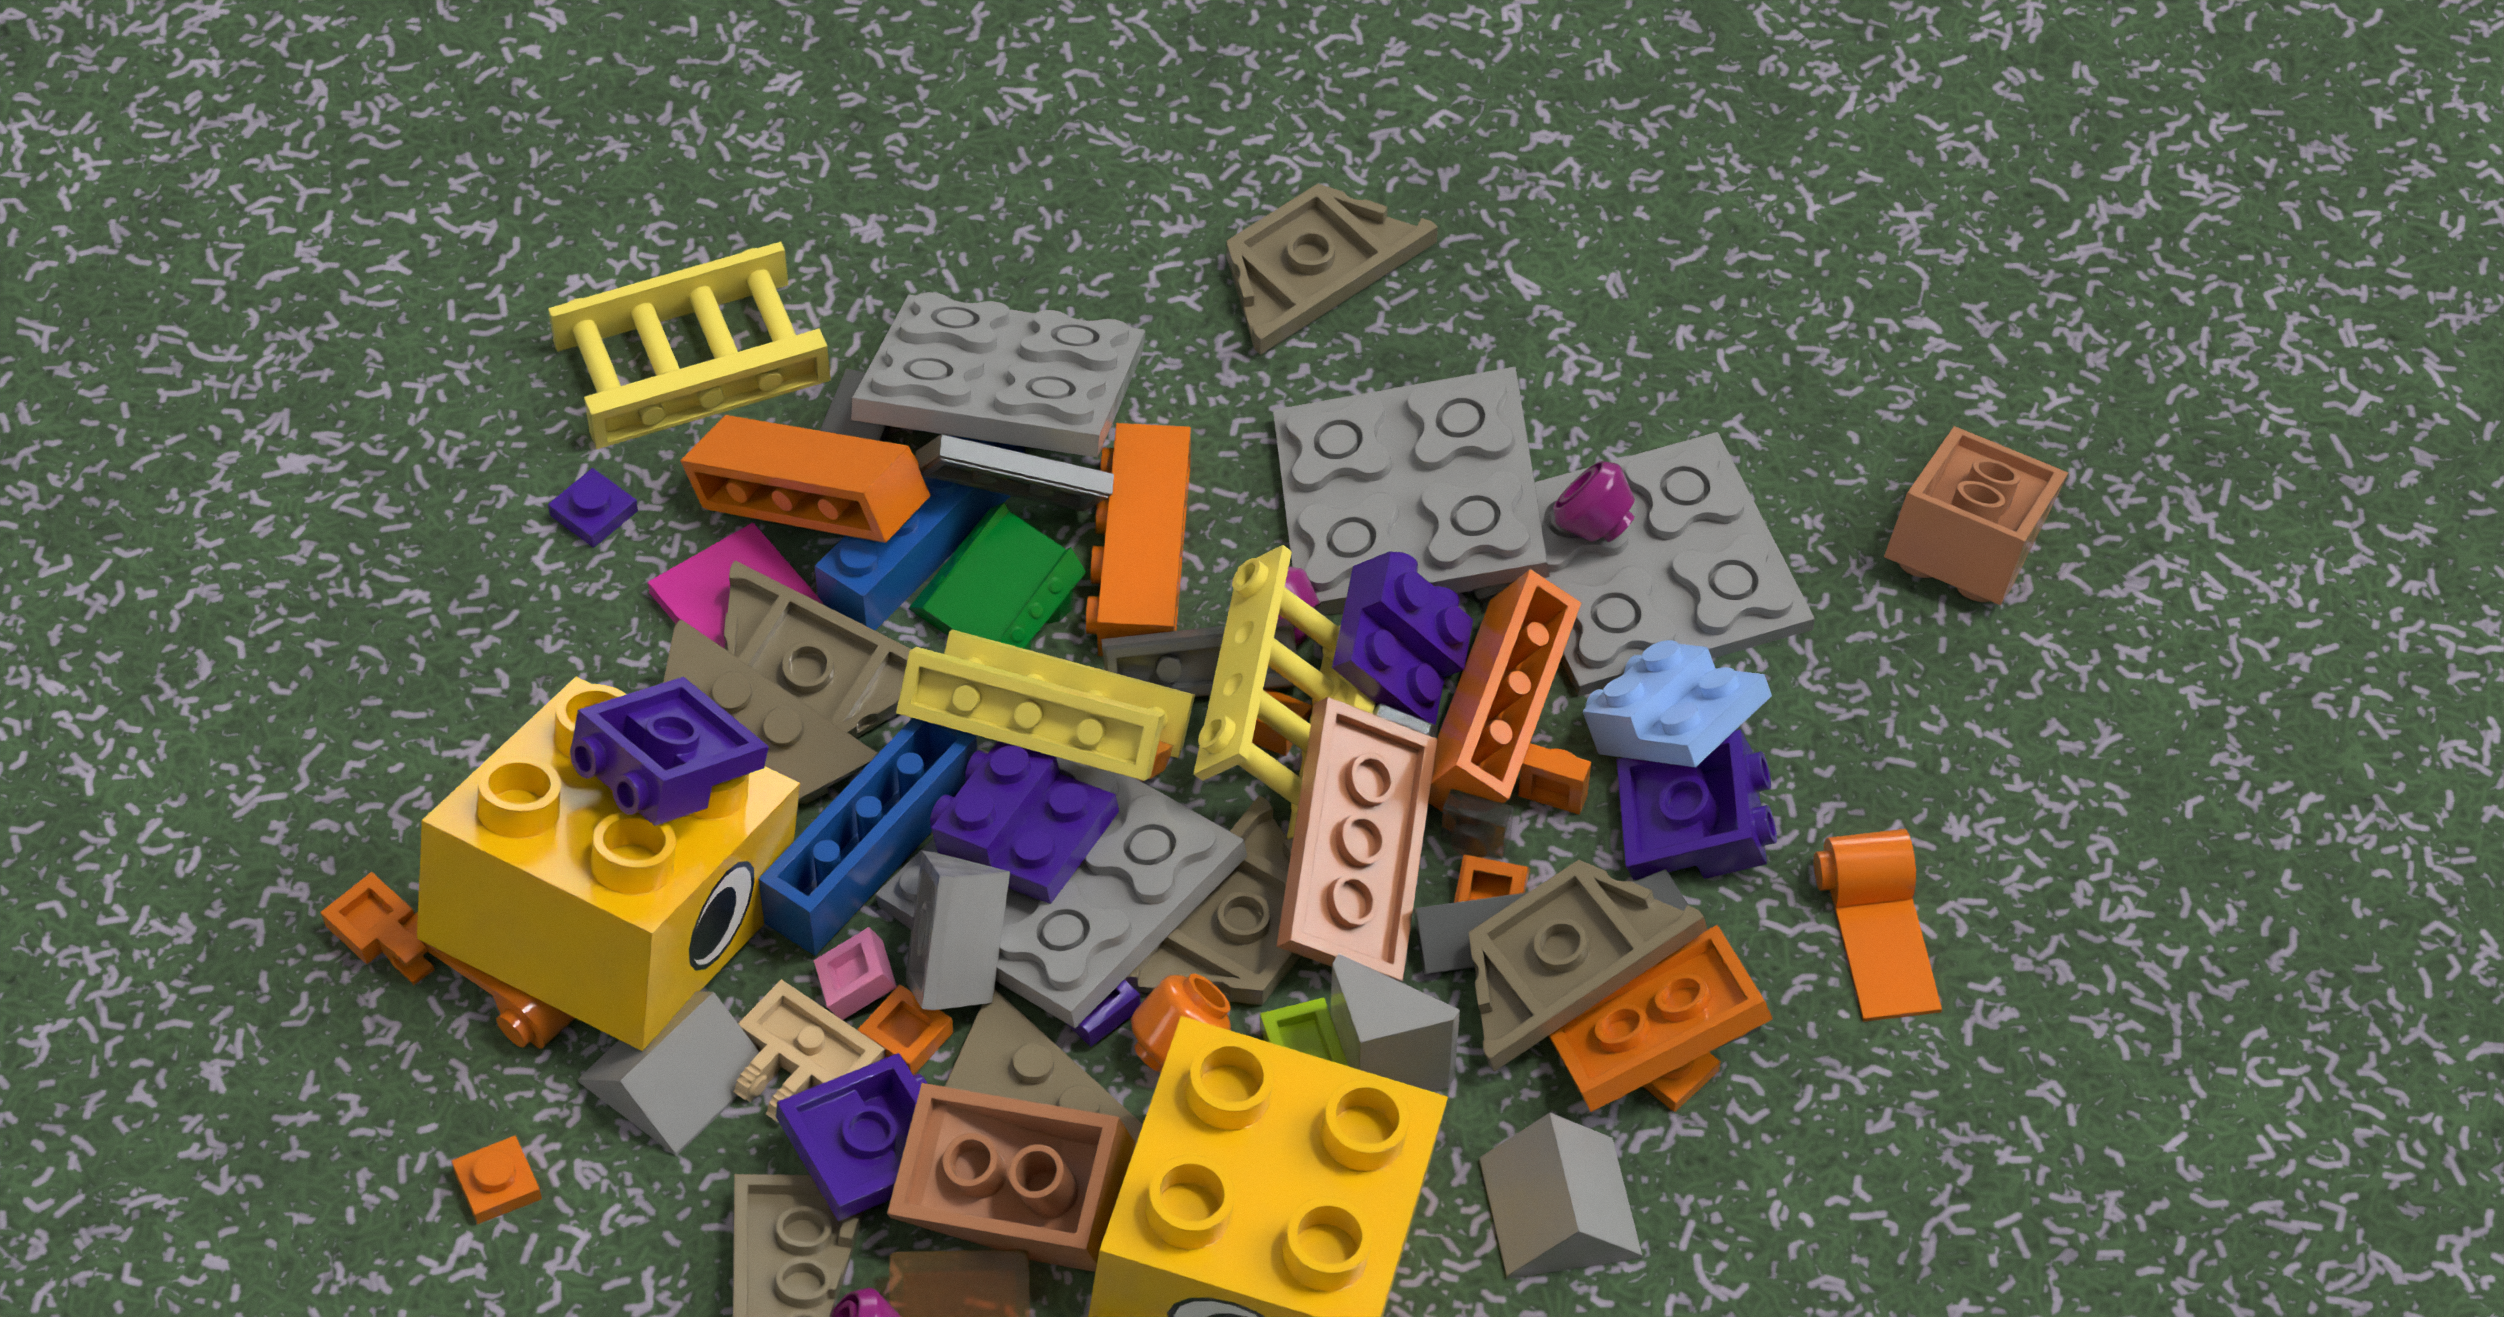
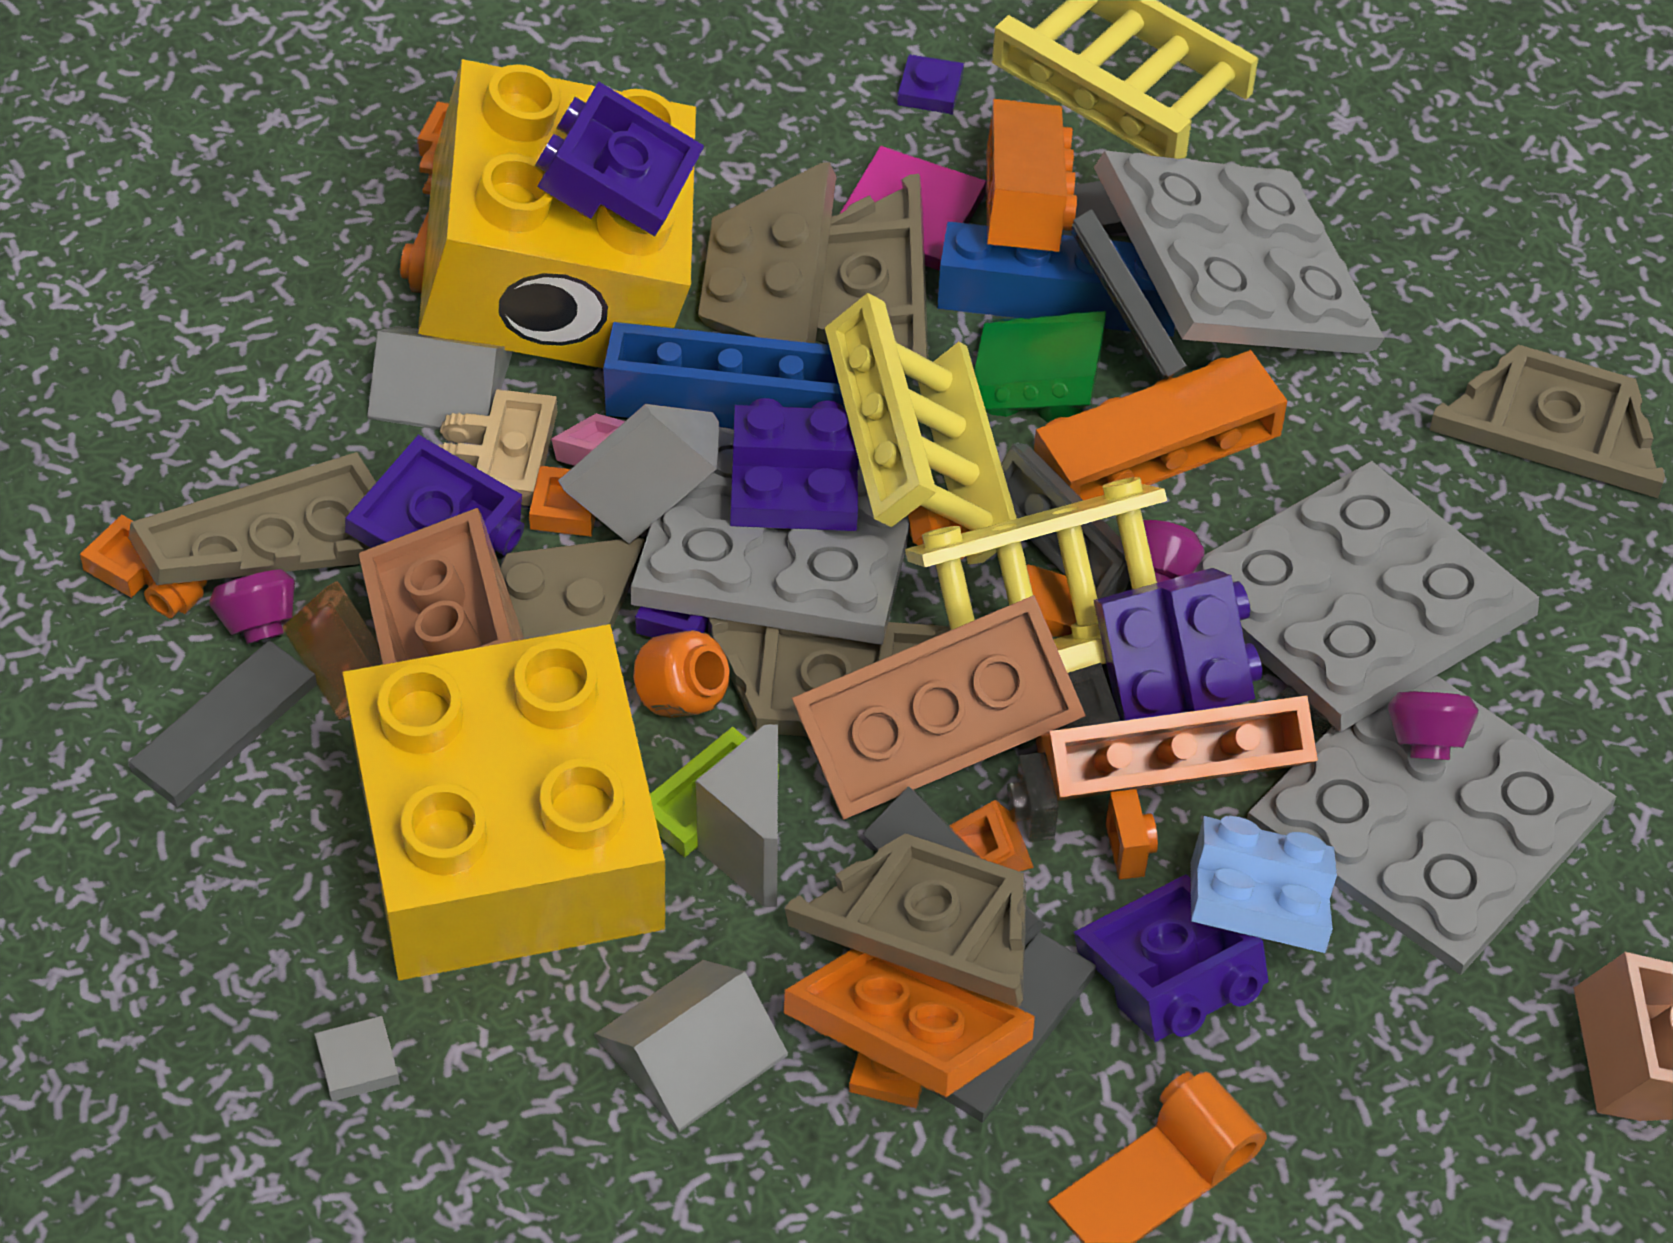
camera: 60 degrees right, 0 degrees up
(496, 1179) = (275, 319): orange plate -> none

